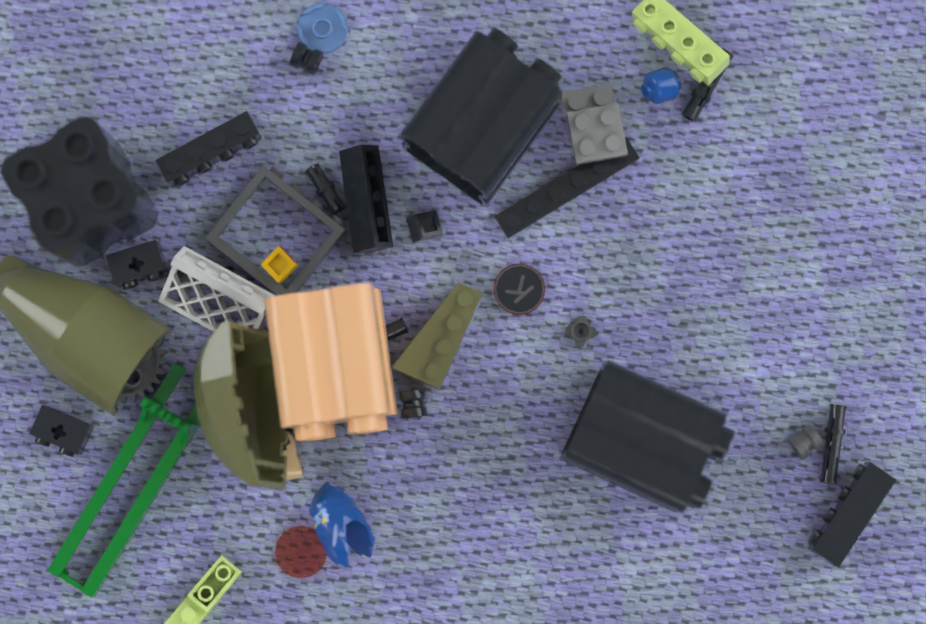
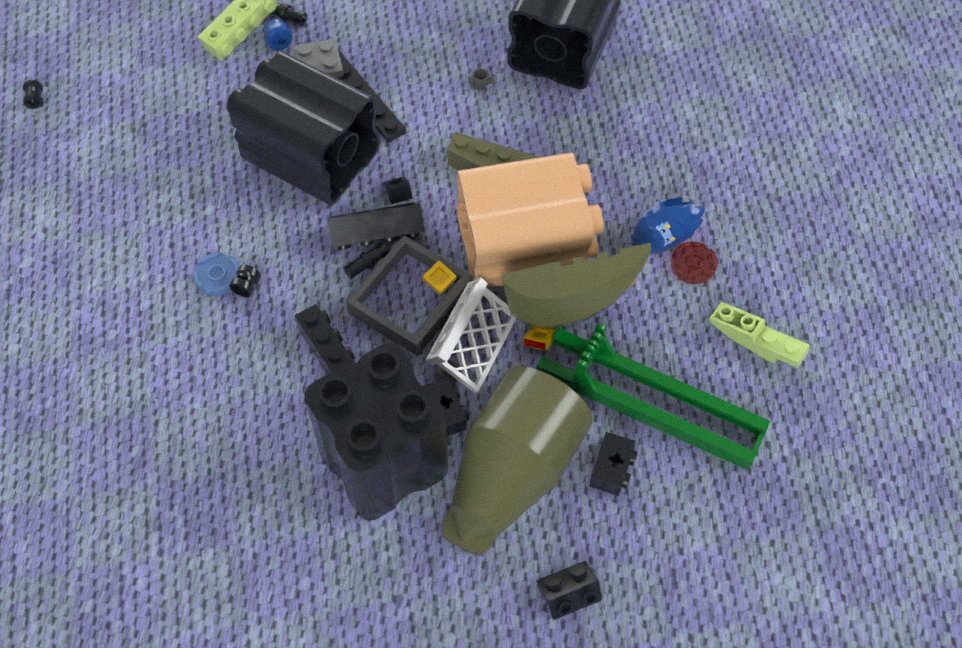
camera: 95 degrees left, 25 degrees down
(519, 289) = (447, 119): black tile -> none

